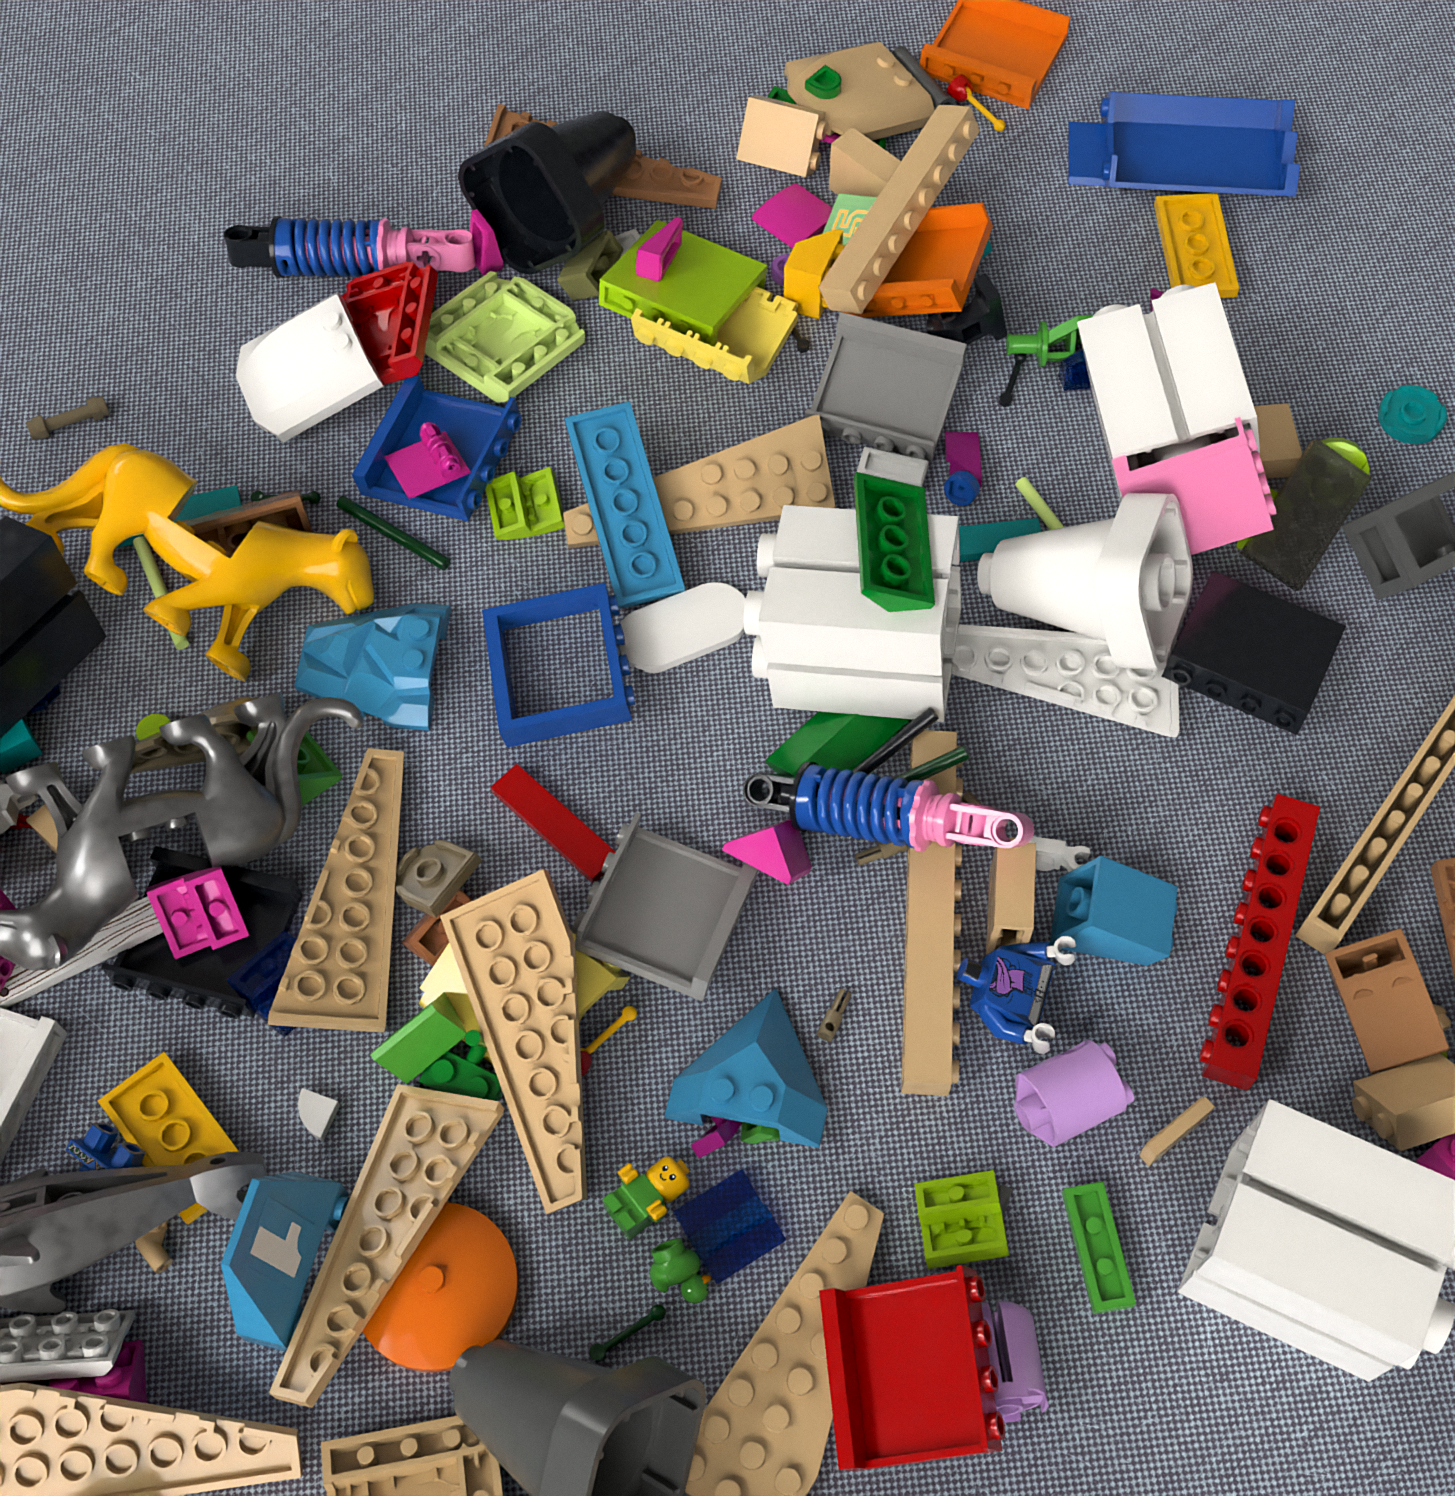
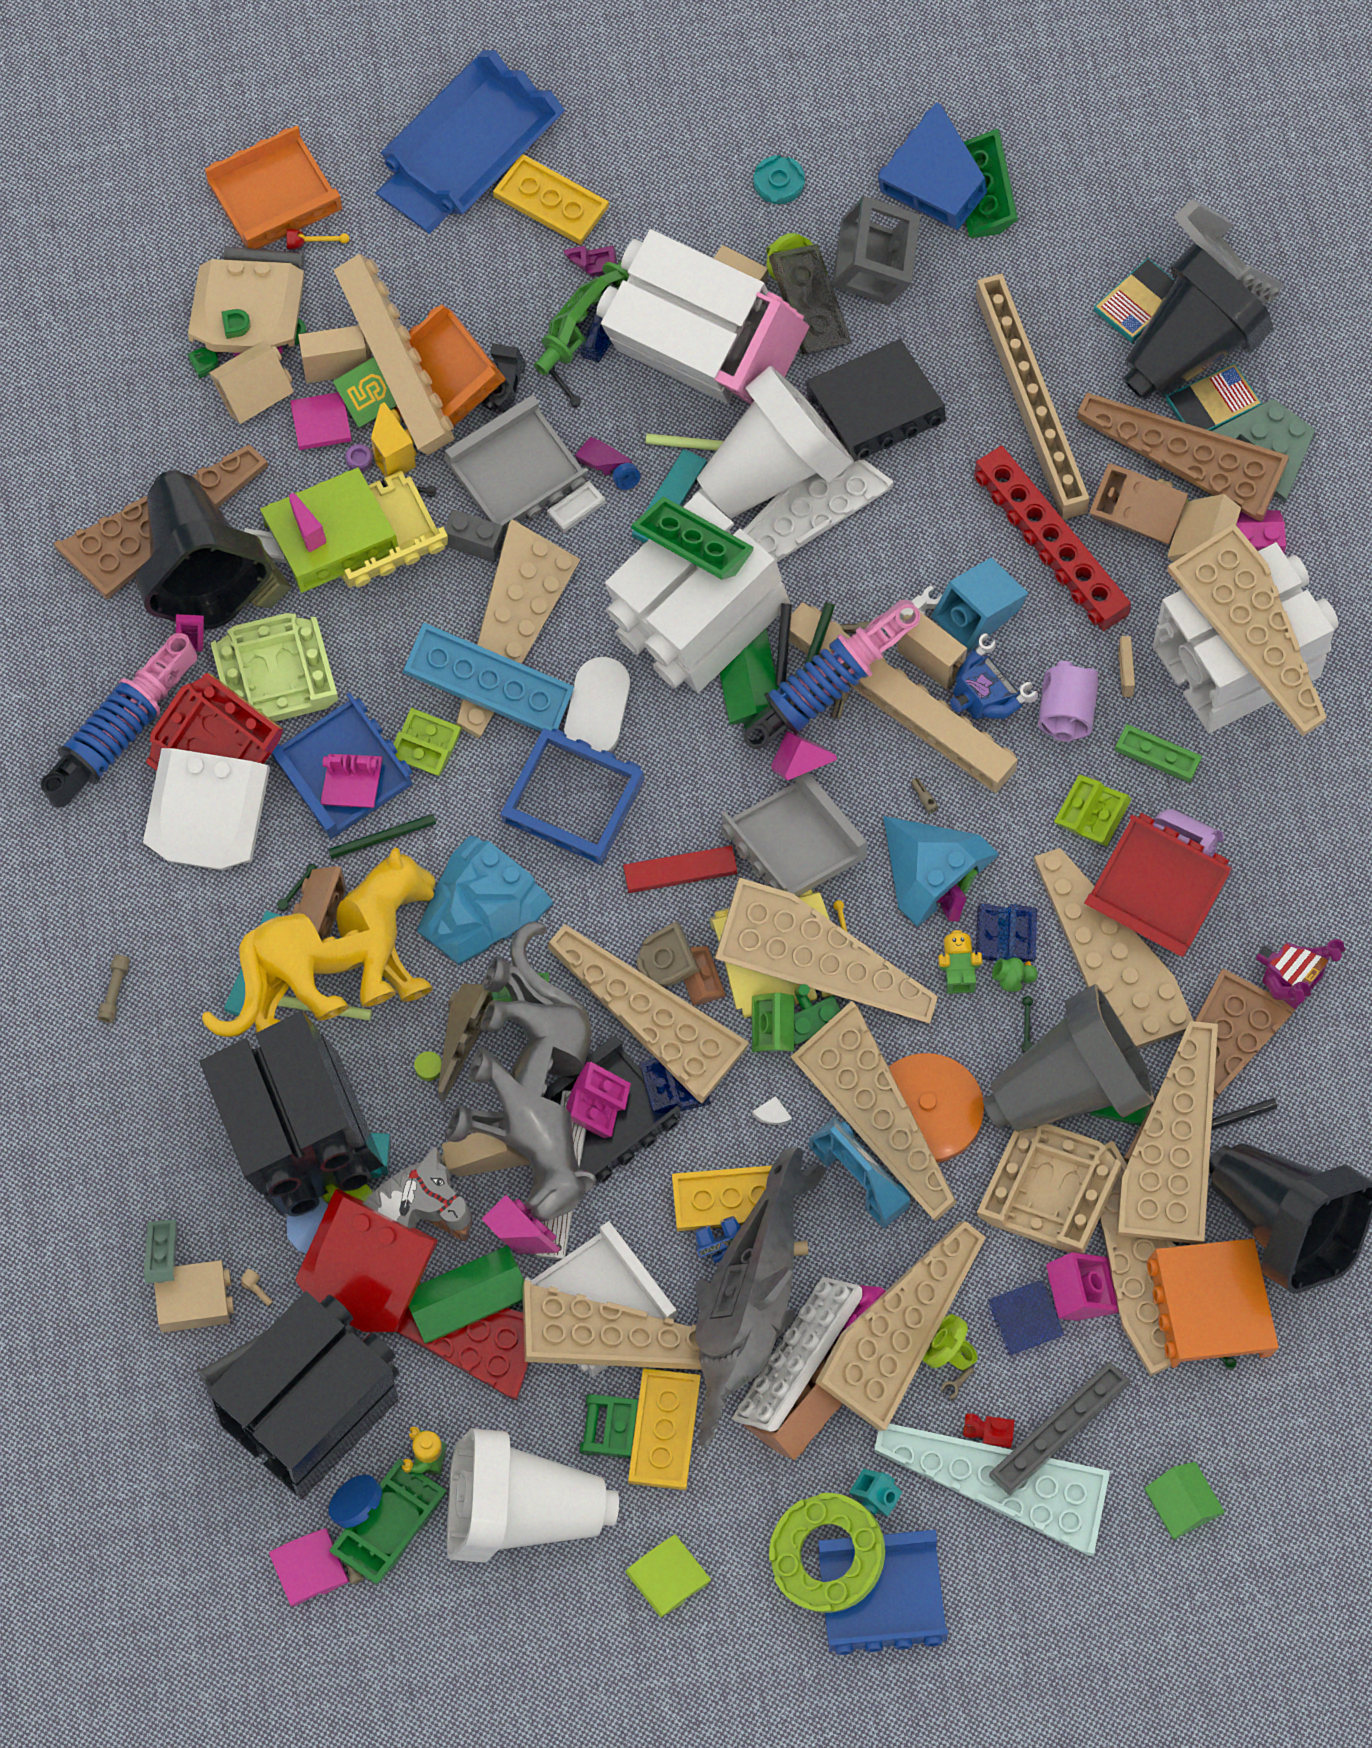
camera: 55 degrees left, 5 degrees up
(778, 395) = (474, 535): none -> dark grey brick
(1347, 1204) = (1240, 601): none -> tan wing

